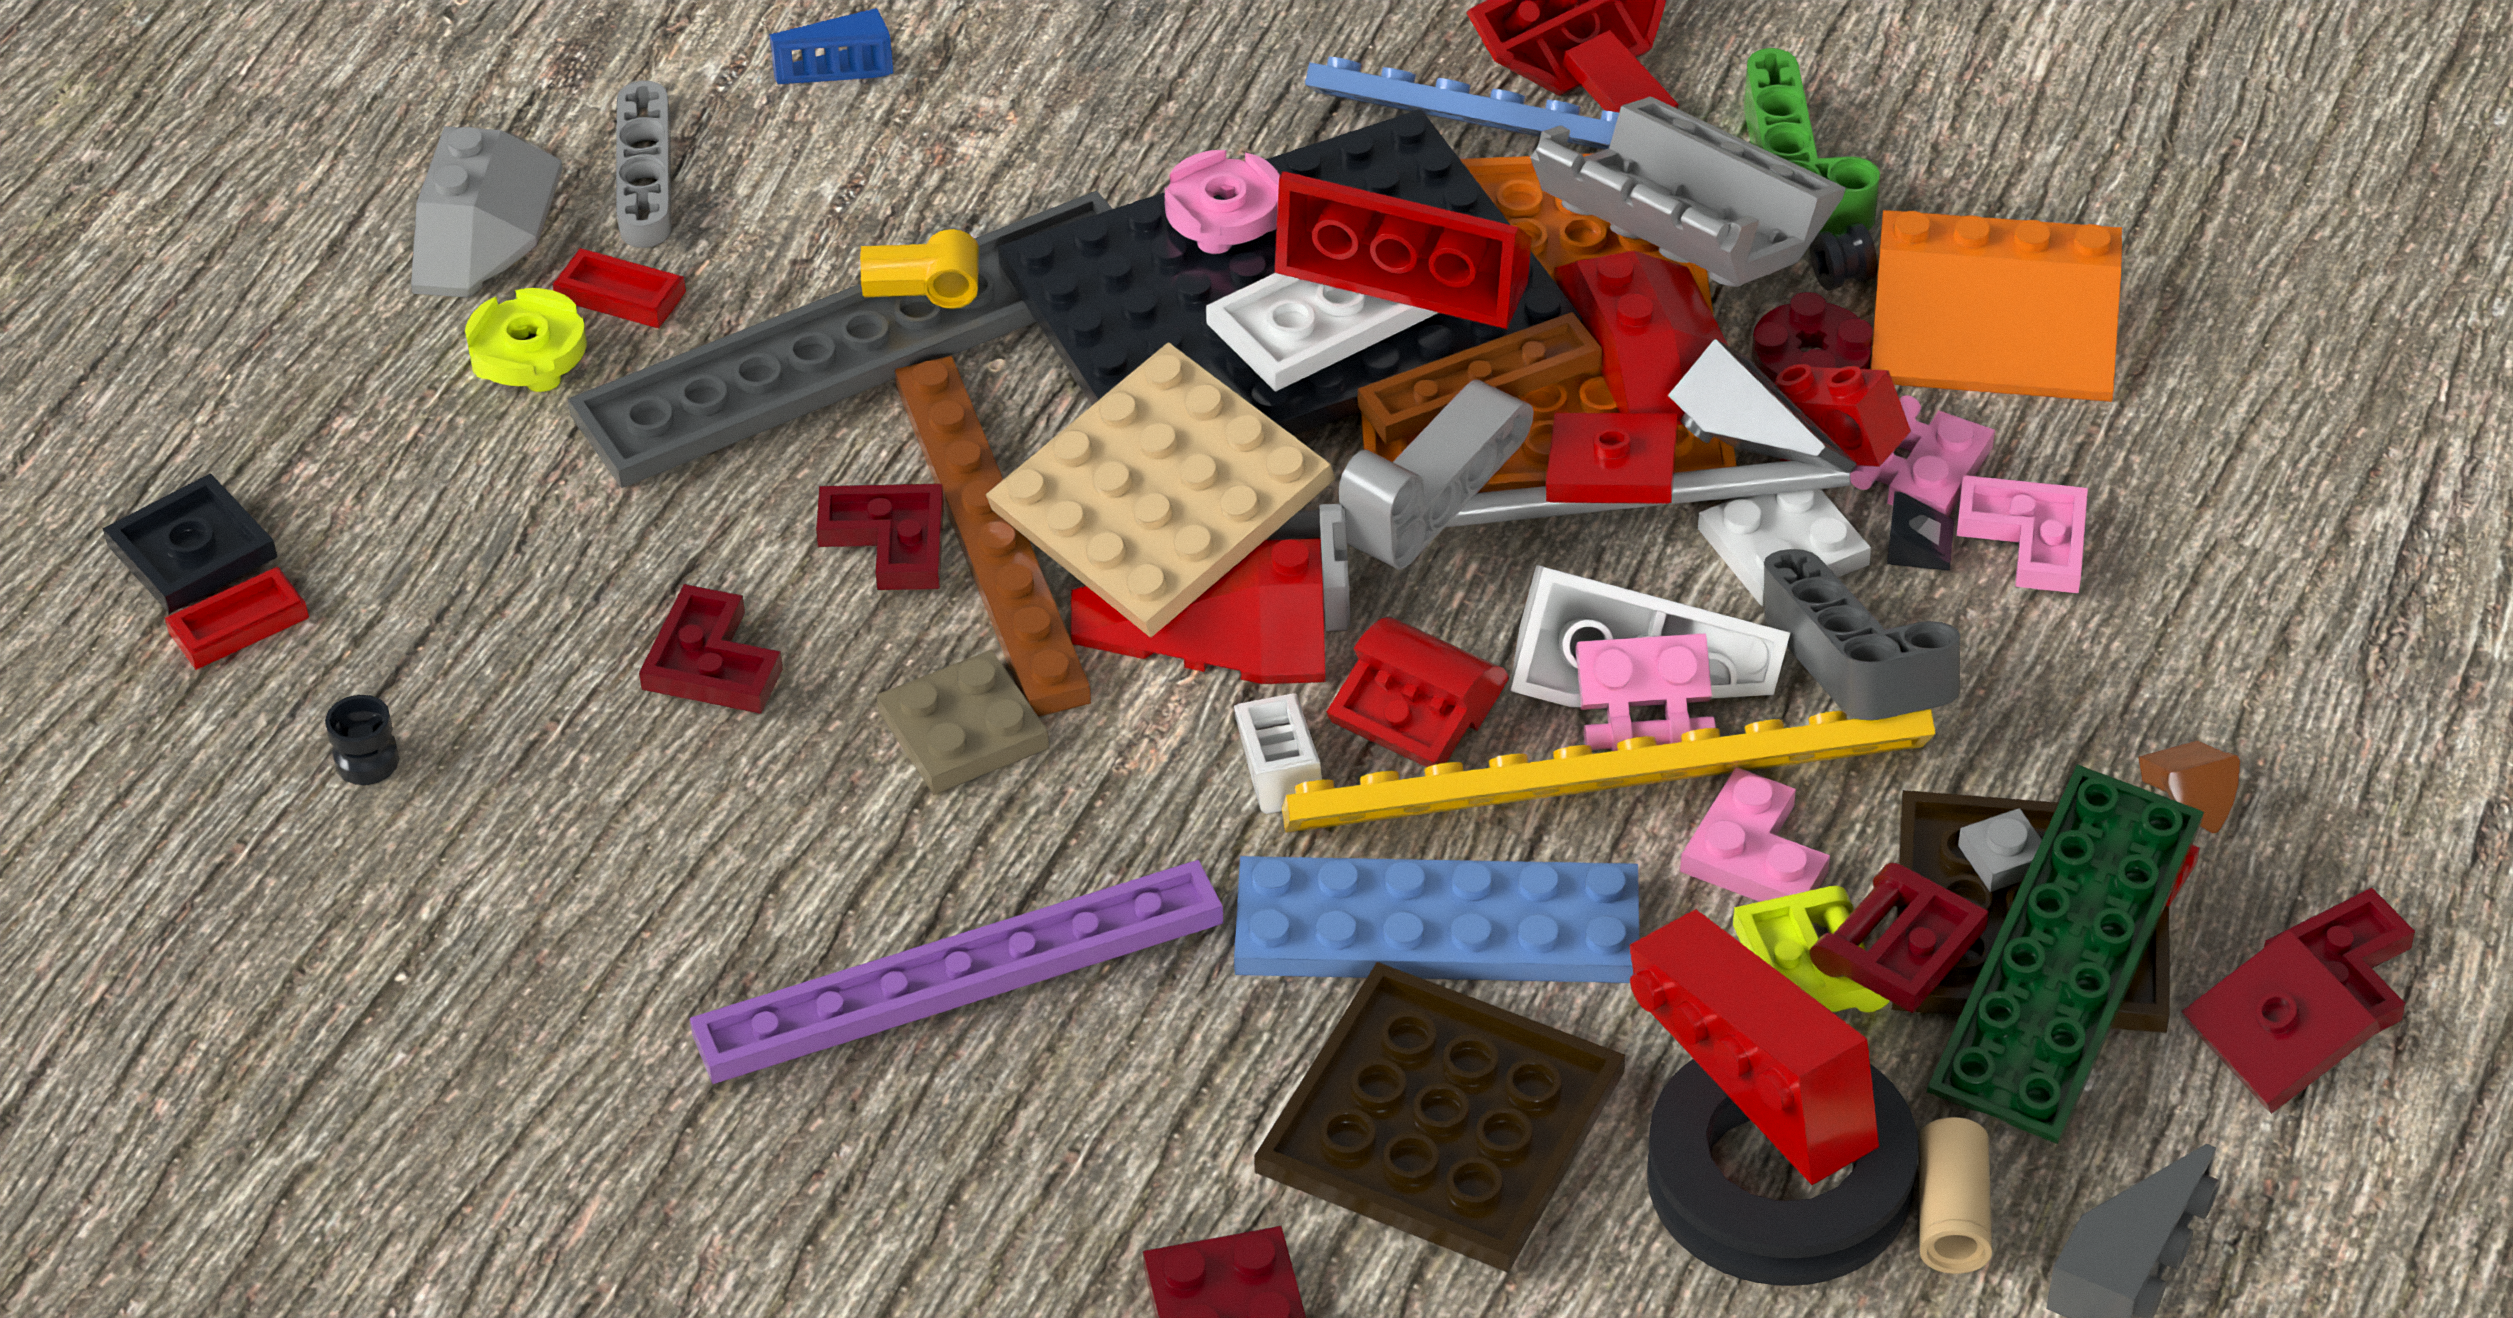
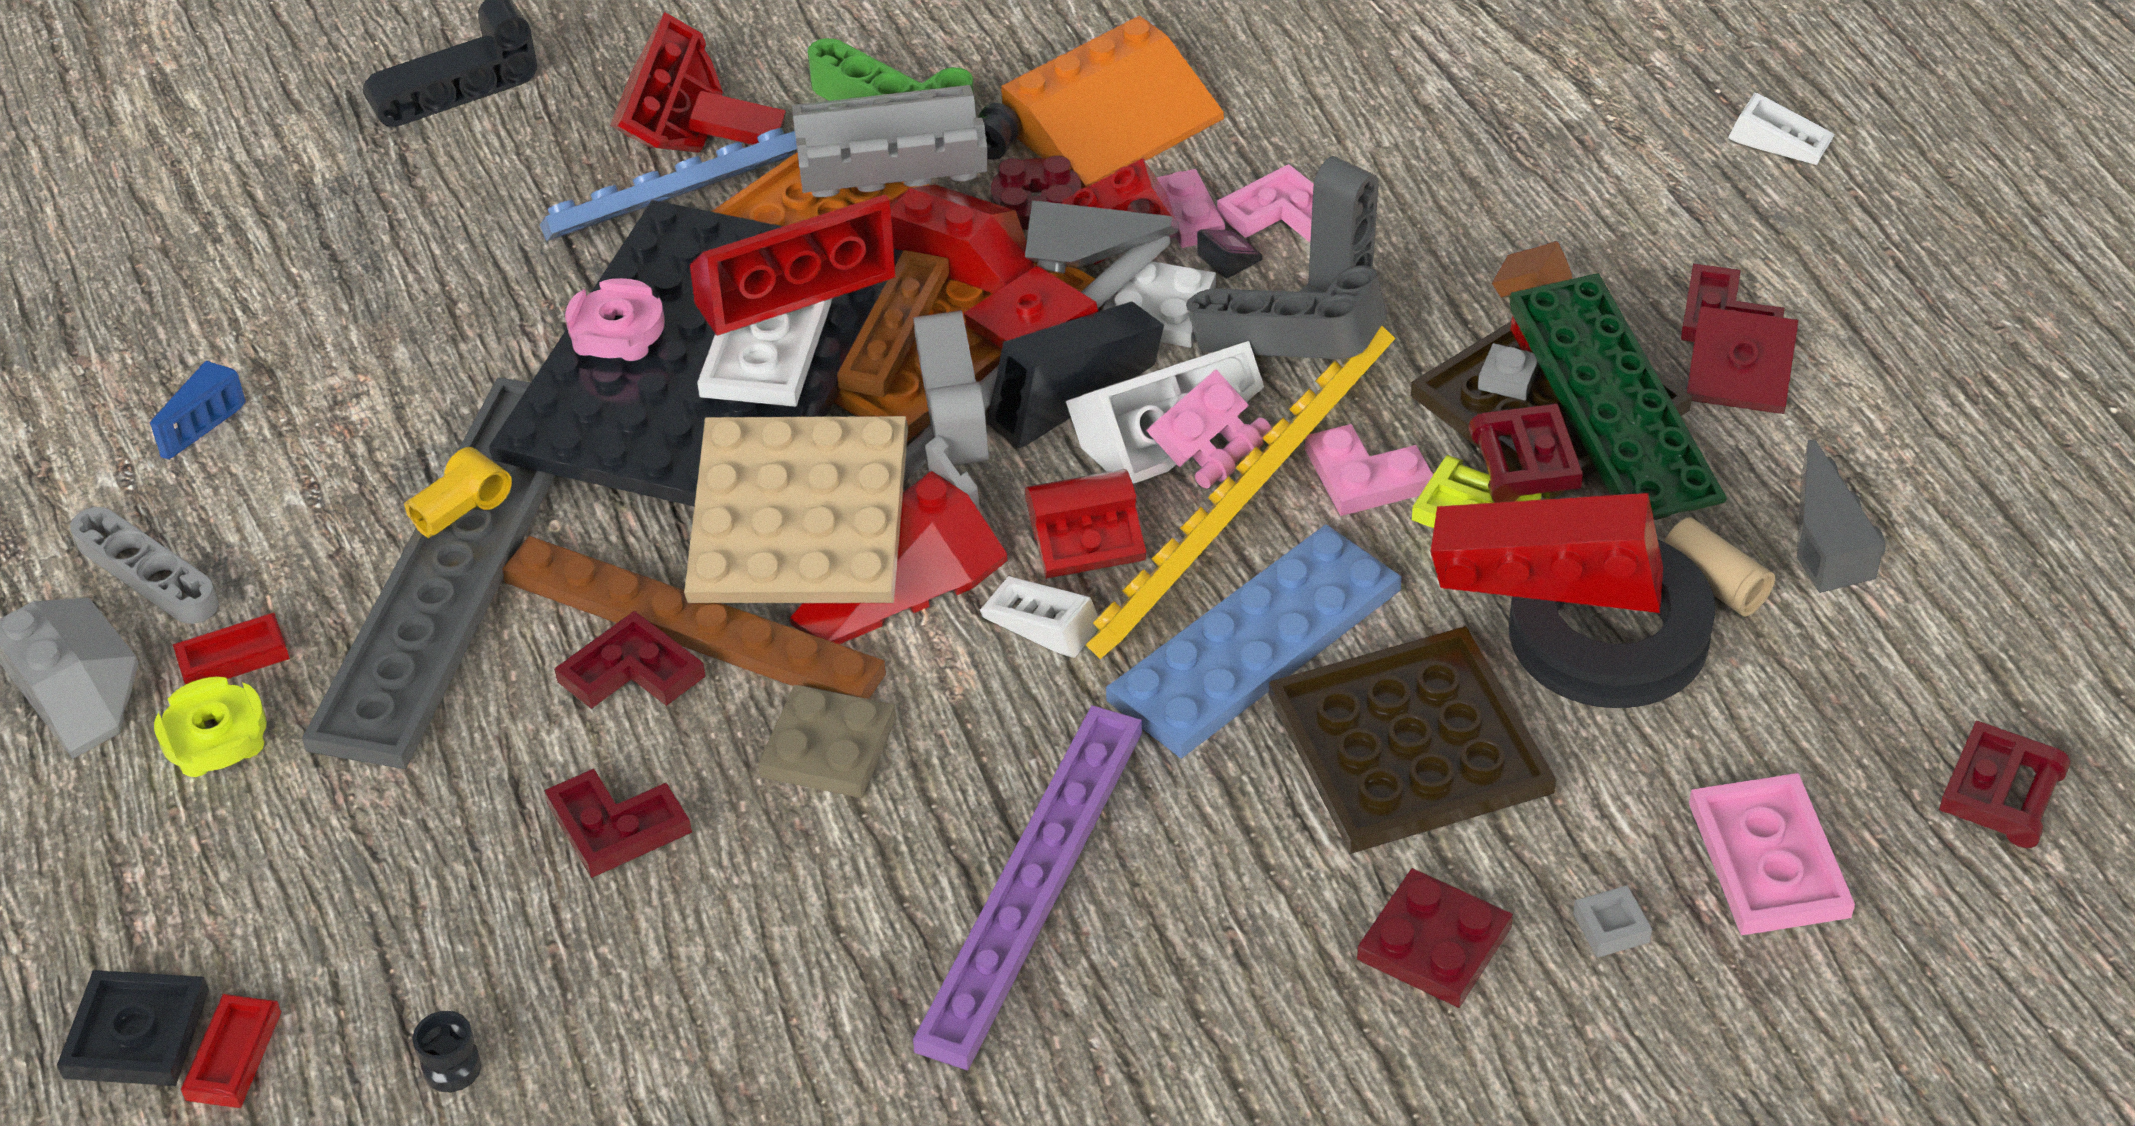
camera: 45 degrees left, 0 degrees up
(1597, 534) = (1066, 362): none -> black slope
(1970, 577) = (1341, 222): none -> dark grey beam

